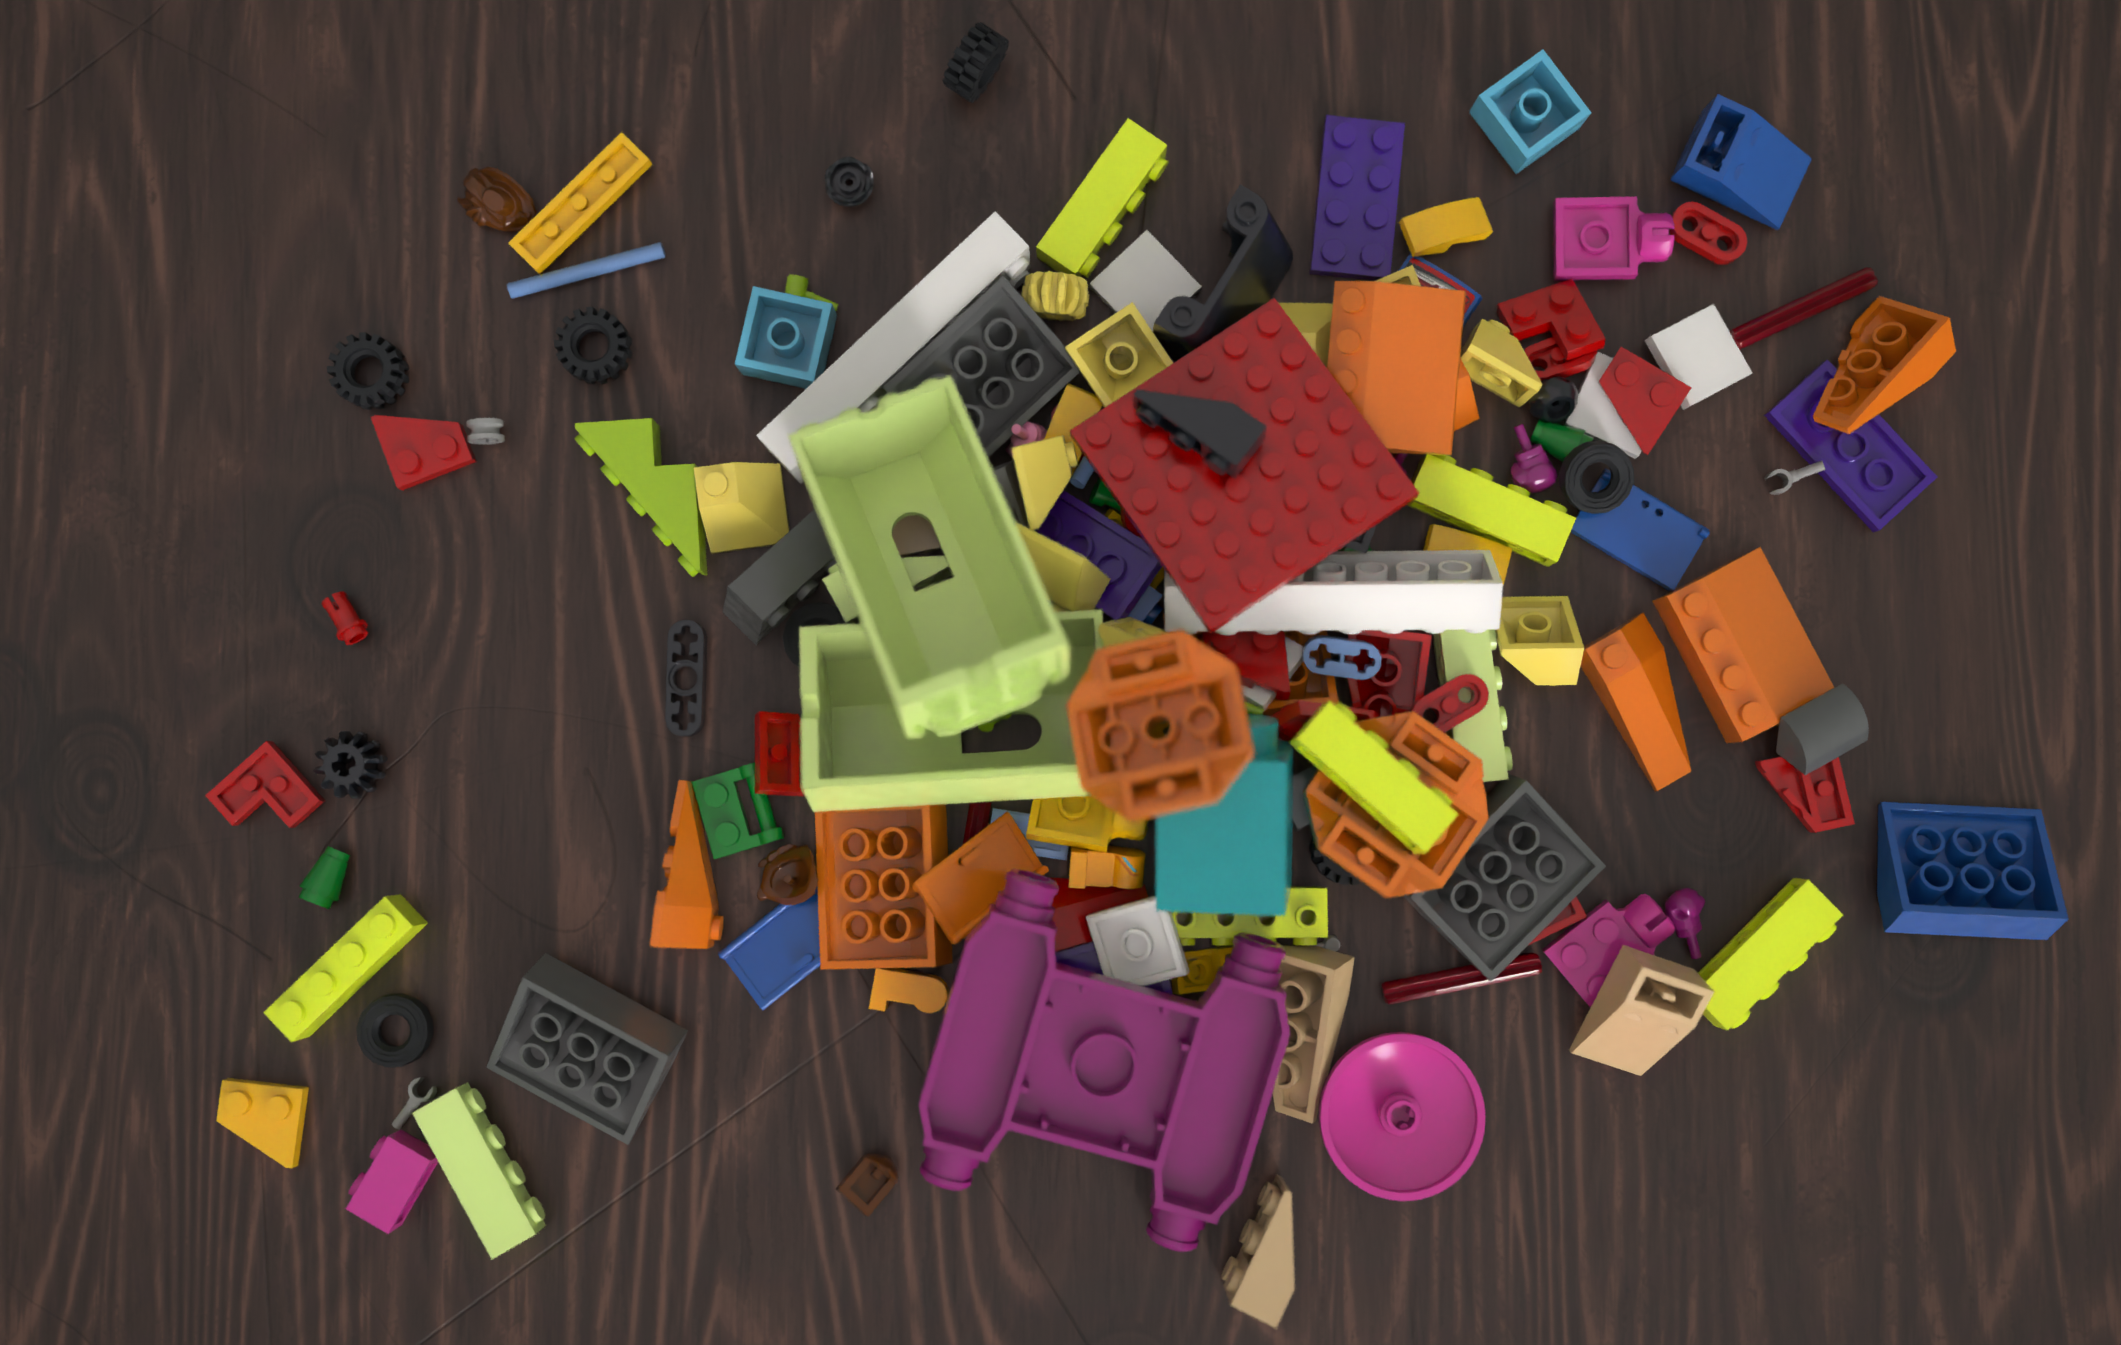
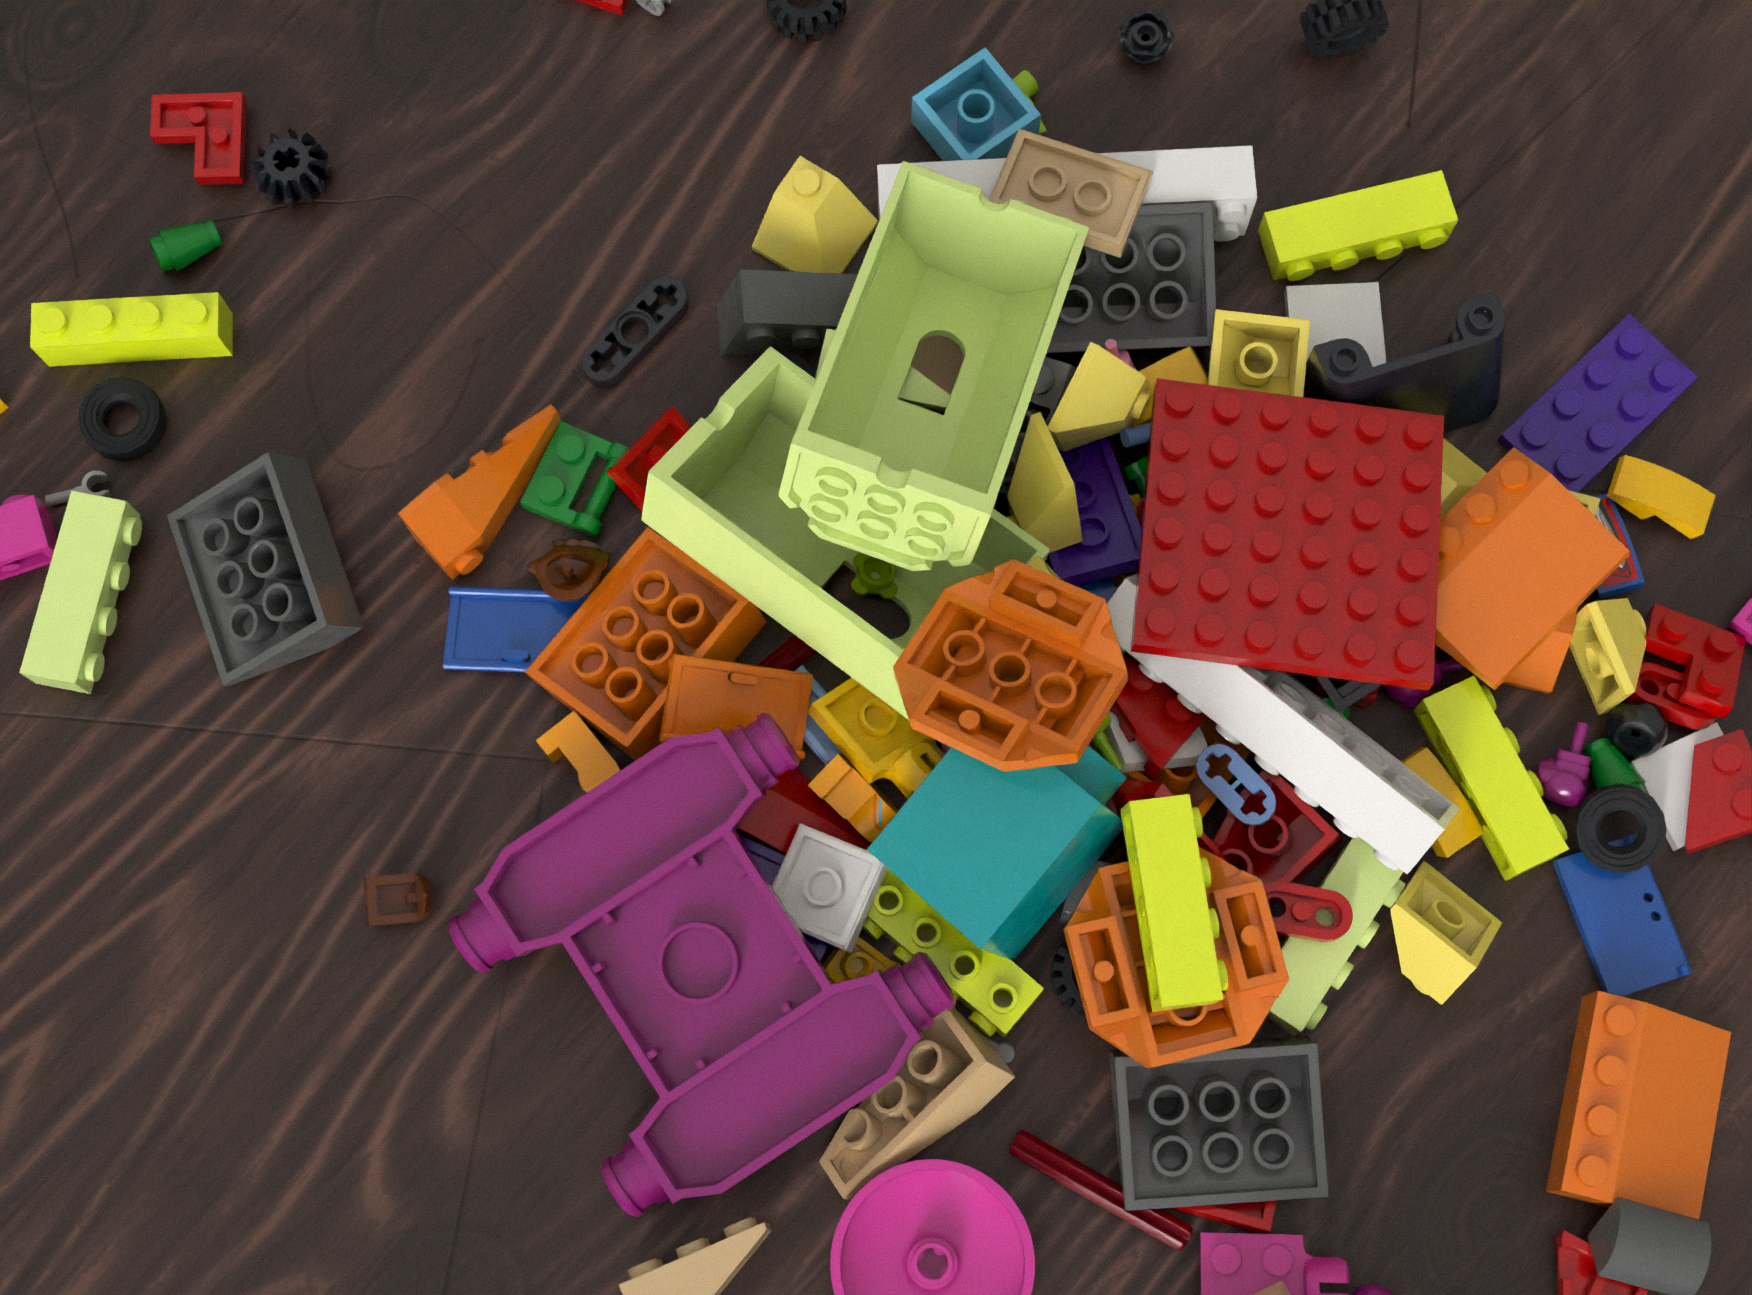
camera: 45 degrees right, 10 degrees down
(345, 618) = (395, 59): red pin -> none
(664, 492) = (756, 158): lime slope -> none
(903, 348) = (1075, 185): none -> tan tile
(1056, 295) = (1247, 269): light yellow gear -> none
(1212, 428) = (1288, 470): black slope -> none
(1636, 689) = (1498, 1062): orange wedge -> none

